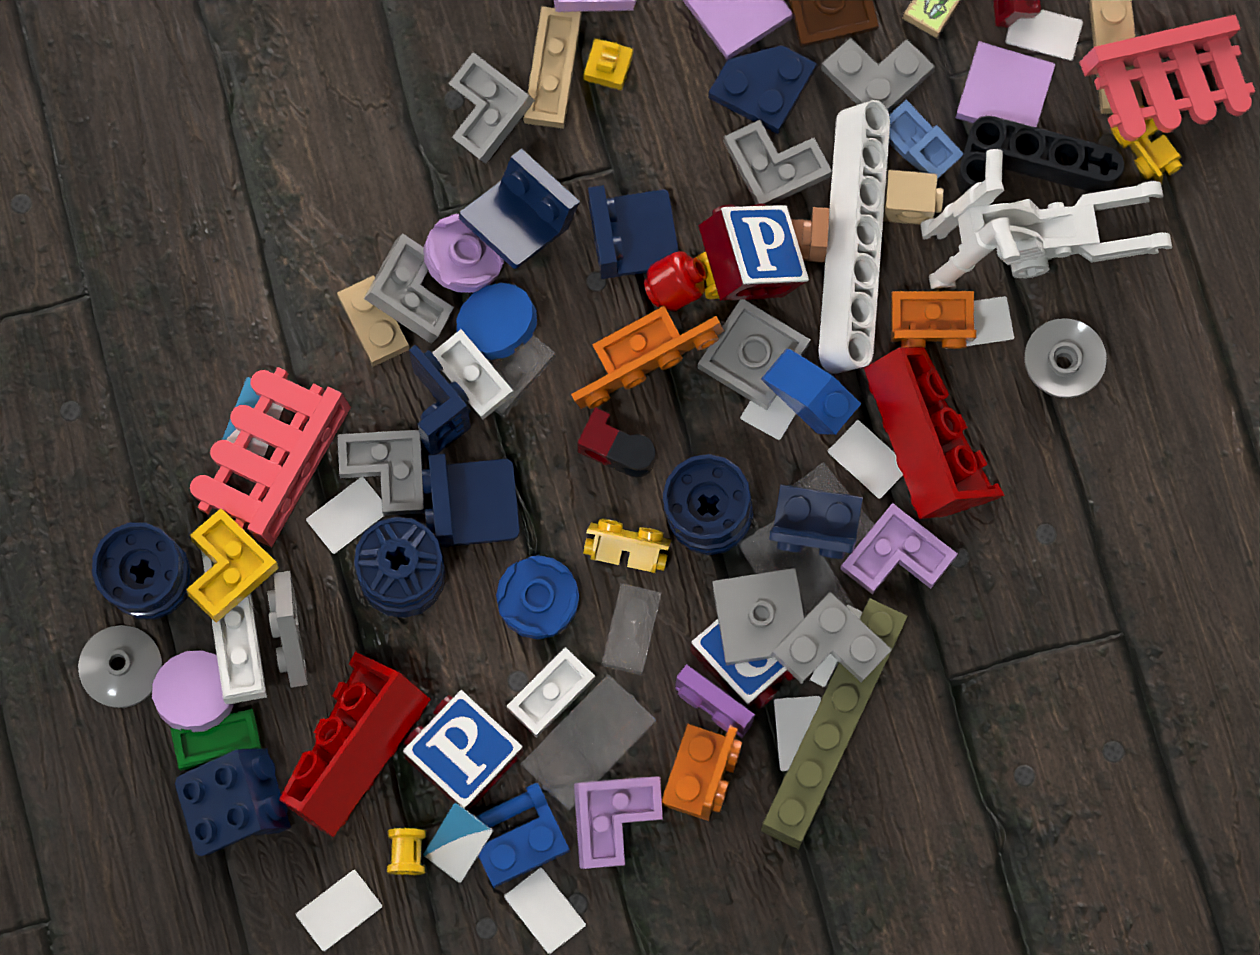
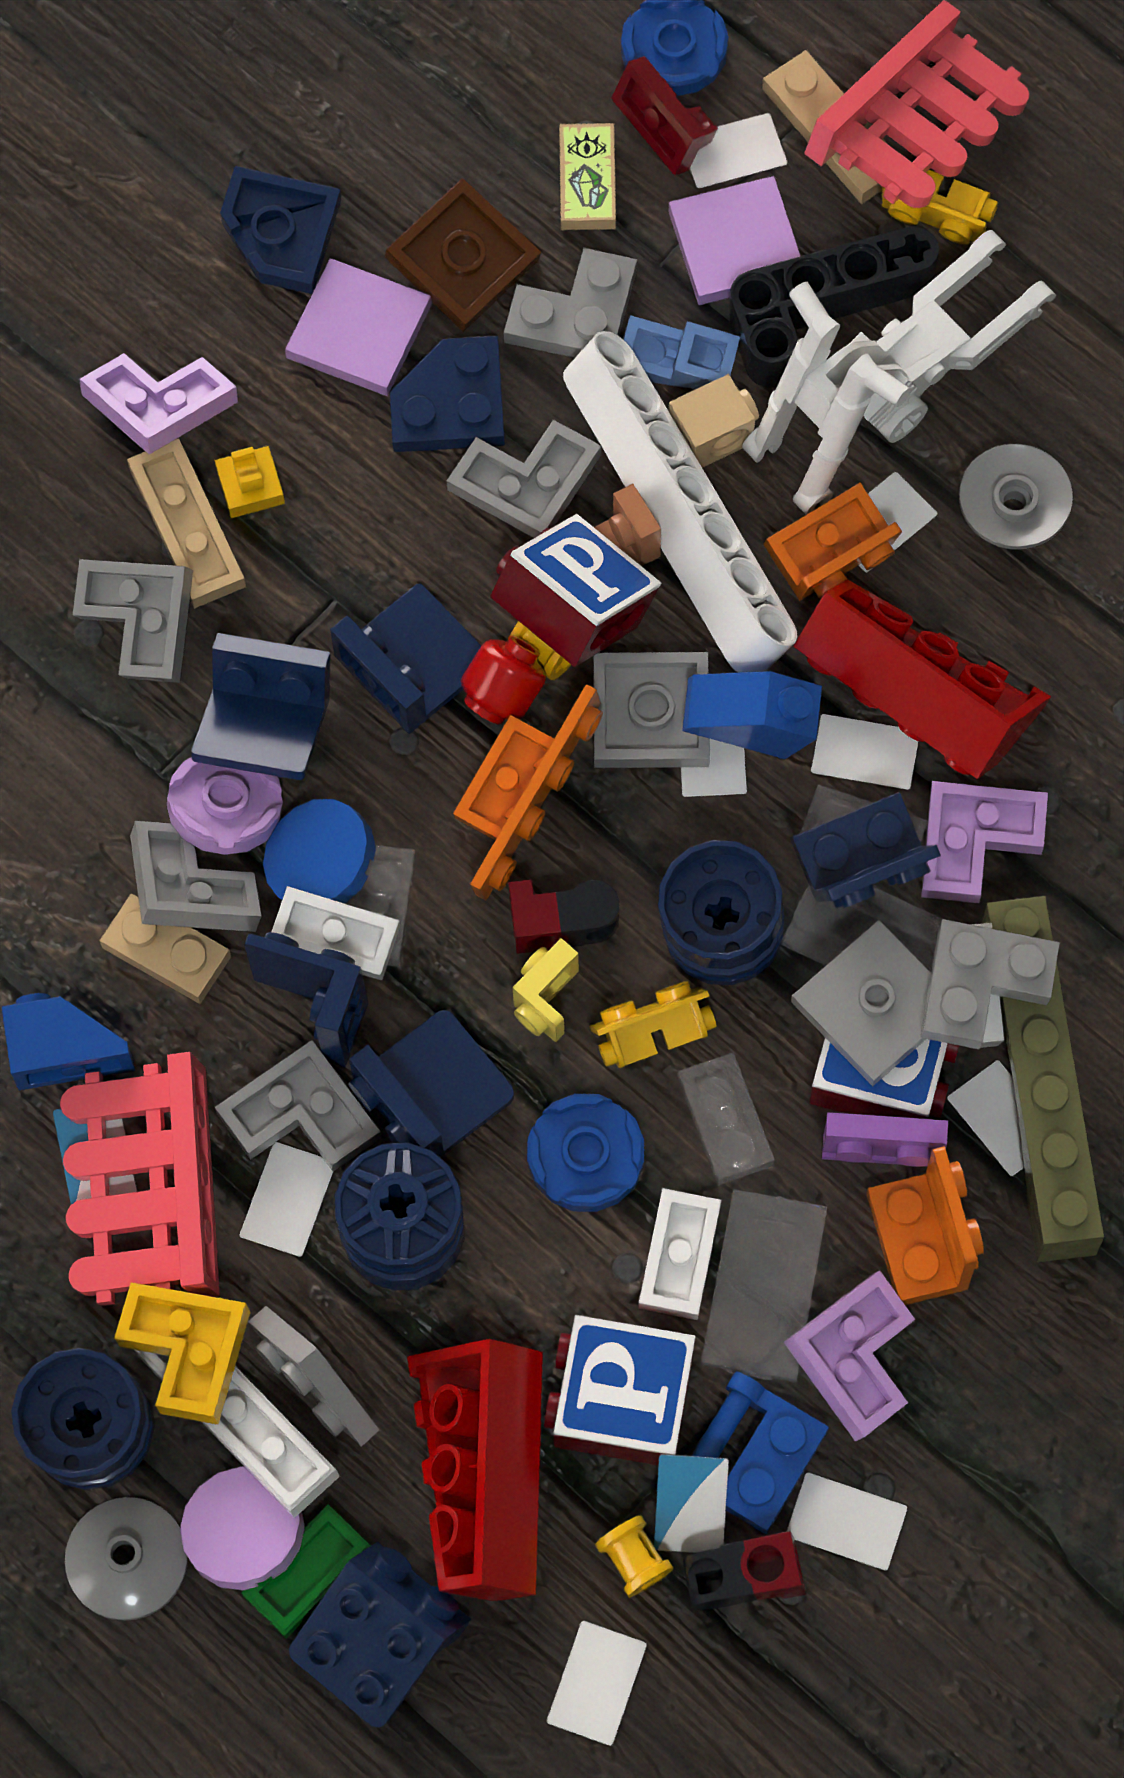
camera: 30 degrees left, 5 degrees down
(271, 339) = (59, 1043): none -> blue slope
(464, 902) = (744, 1572): none -> leg
(581, 477) = (542, 979): none -> light yellow bracket

